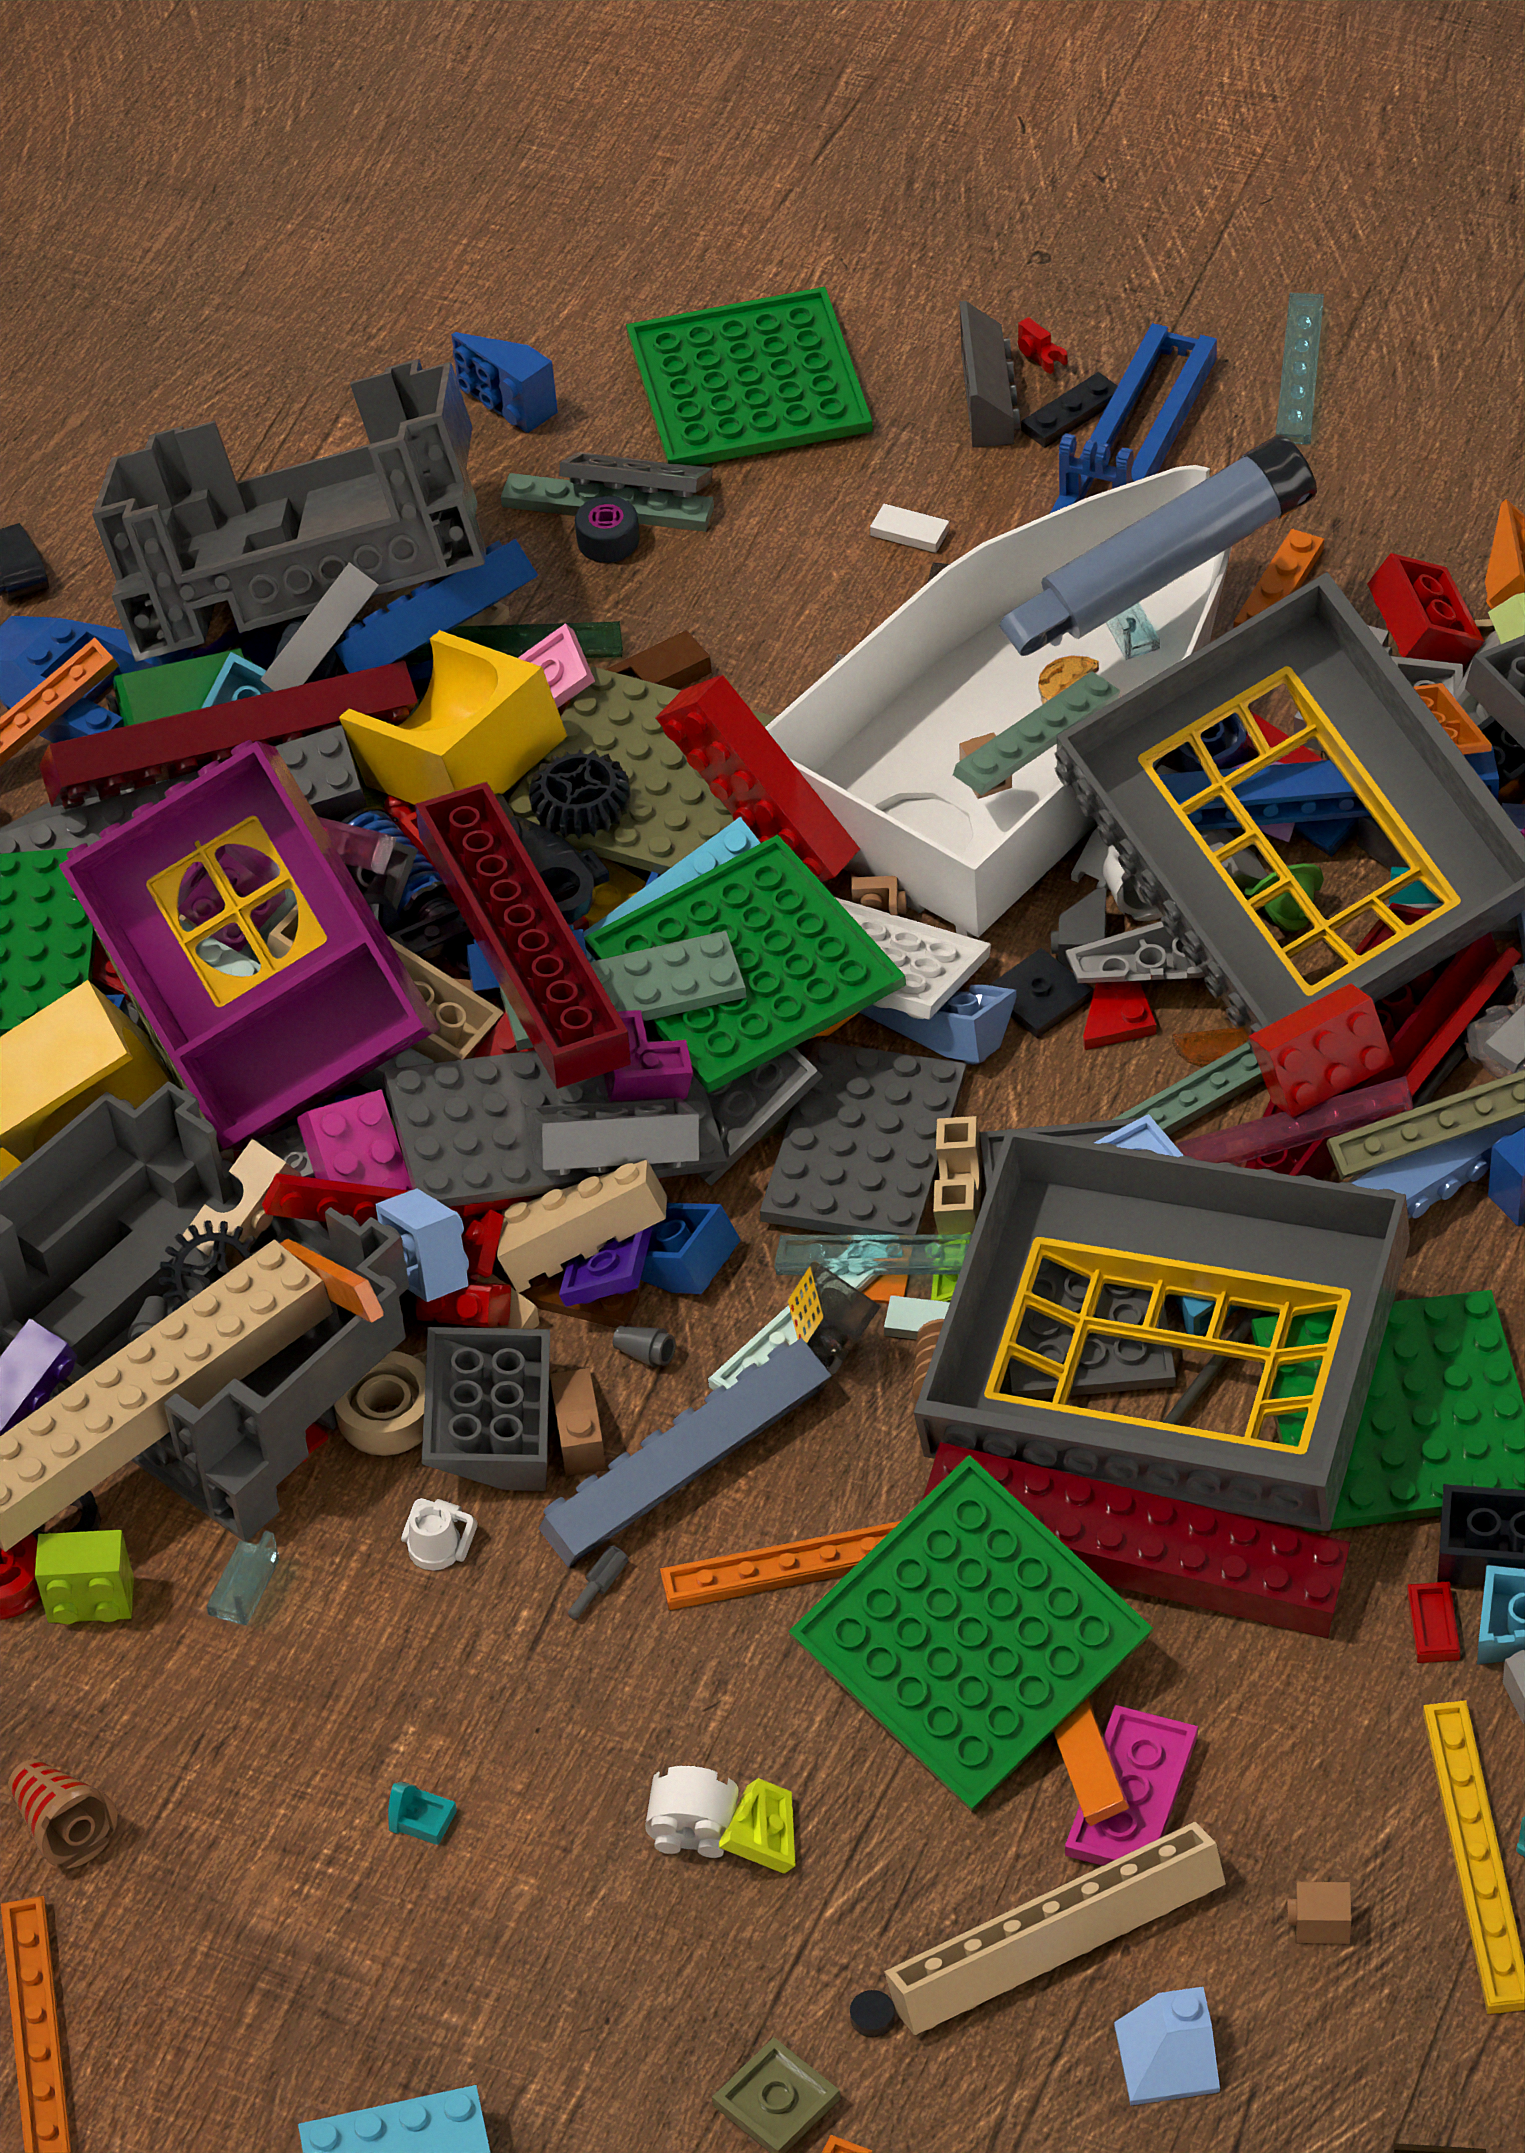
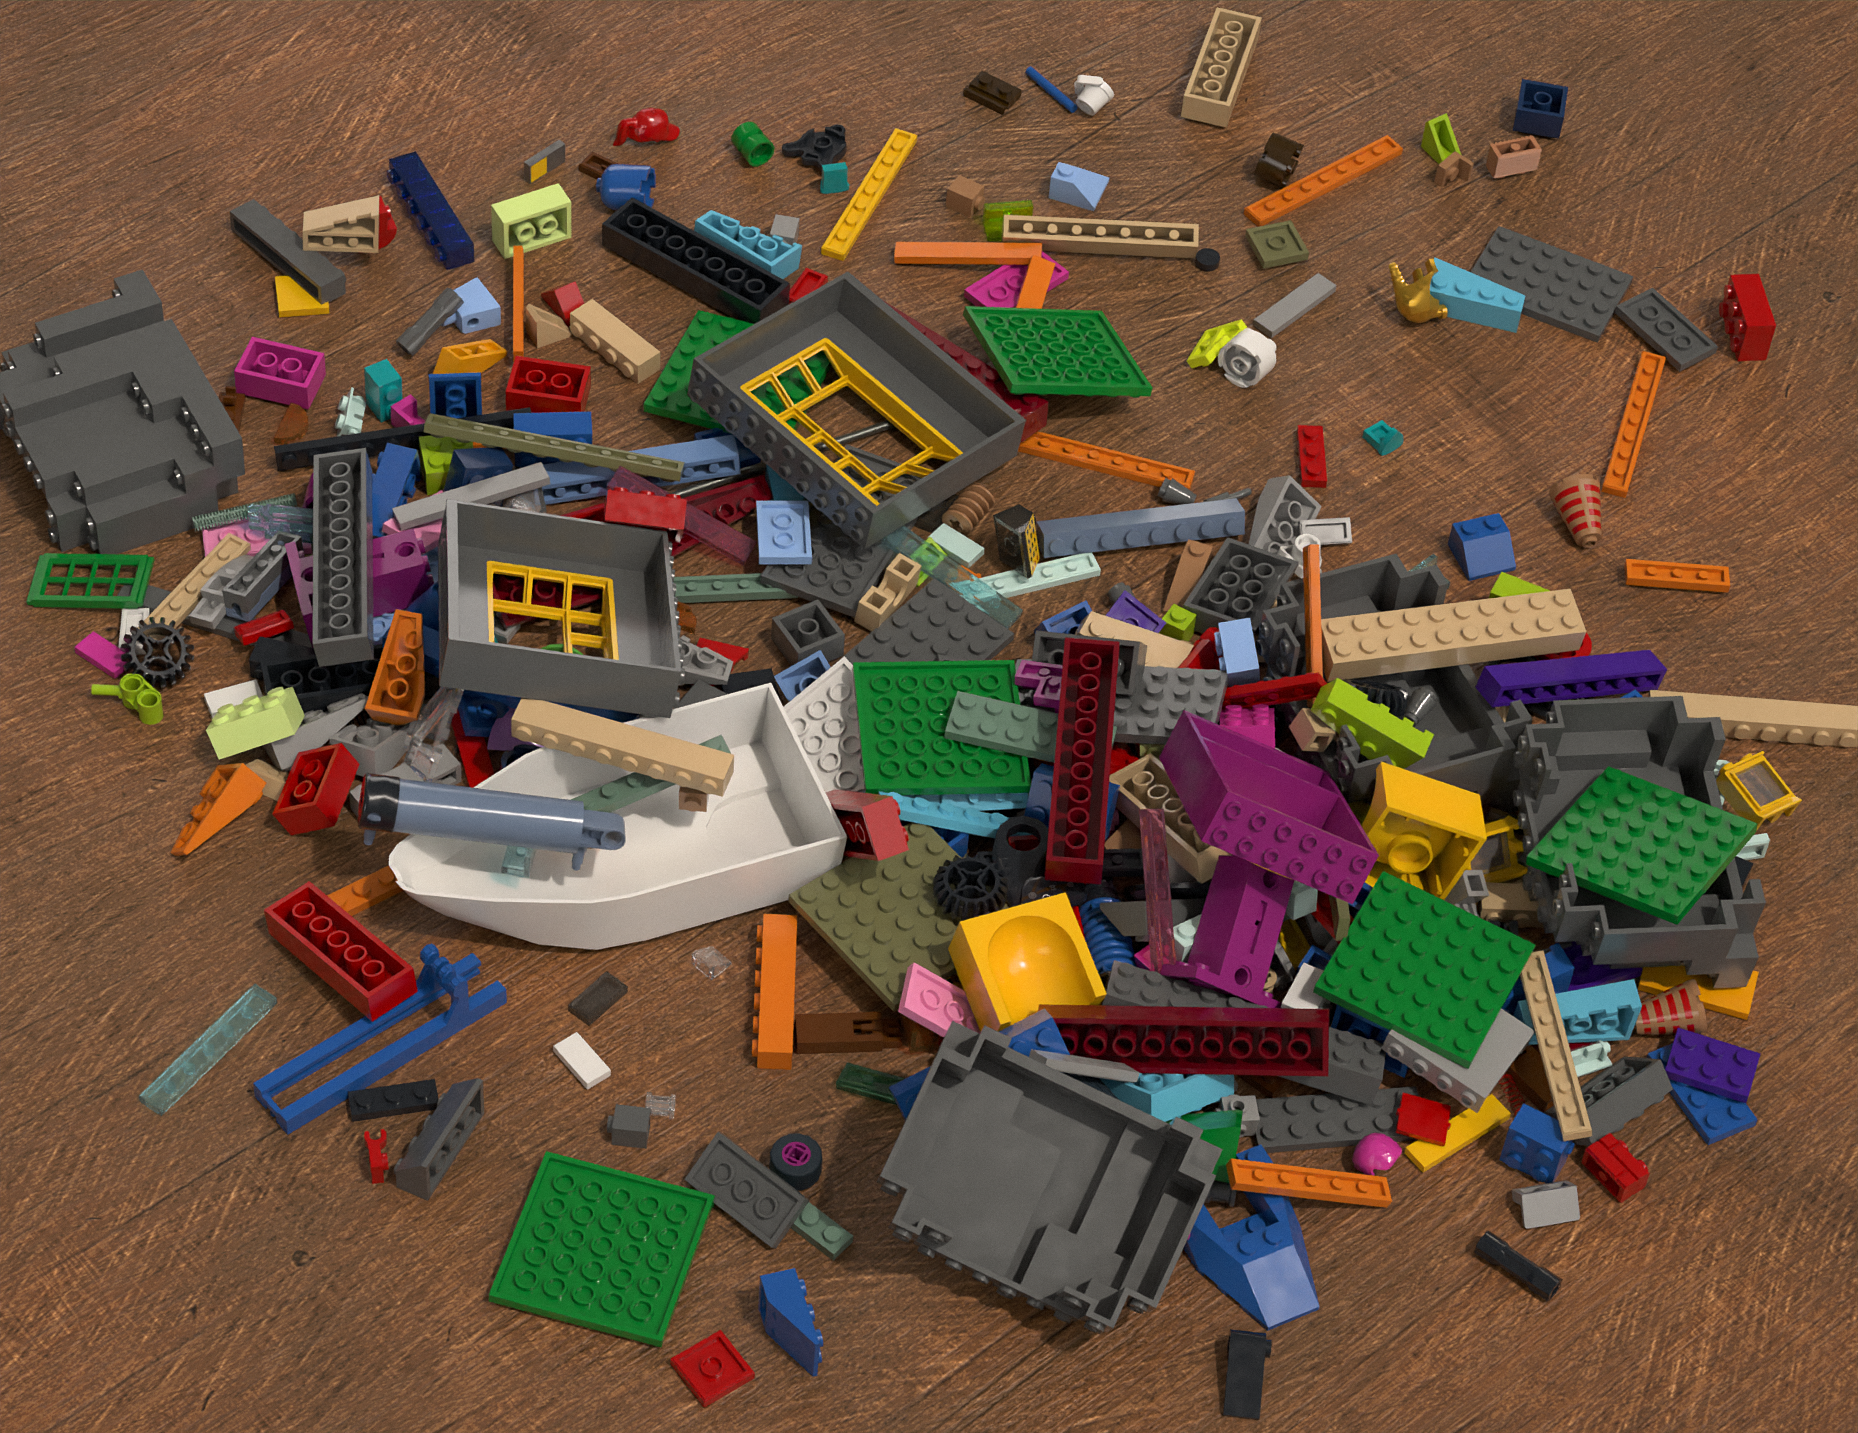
camera: 160 degrees left, 0 degrees up
(182, 1189) = (1371, 724): none -> lime wedge
(186, 1685) = (1482, 546): none -> blue slope
(425, 1592) = (1329, 531): none -> light grey tile
(491, 2073) = (1415, 299): none -> pearl gold piece
(504, 1575) = (1278, 513): none -> light grey wedge
(513, 1725) = (1311, 456): none -> red plate
(558, 1319) = (1179, 623): none -> lime brick
(567, 339) = (712, 1368): none -> red tile
(672, 1546) = (1175, 493): none -> dark grey cone
(684, 1997) = (1294, 305): none -> light grey tile
(737, 653) = (776, 992): none -> orange brick
(790, 517) = (661, 1105): none -> clear bush
(805, 483) = (630, 1126): none -> dark grey brick
(1016, 1072) = (806, 632): none -> dark grey brick
(1040, 699) = (623, 746): none -> tan brick
(1182, 438) = (341, 951): none -> red brick
(1225, 1911) = (994, 214): none -> clear neon green panel
(1242, 1794) = (965, 253): none -> orange tile

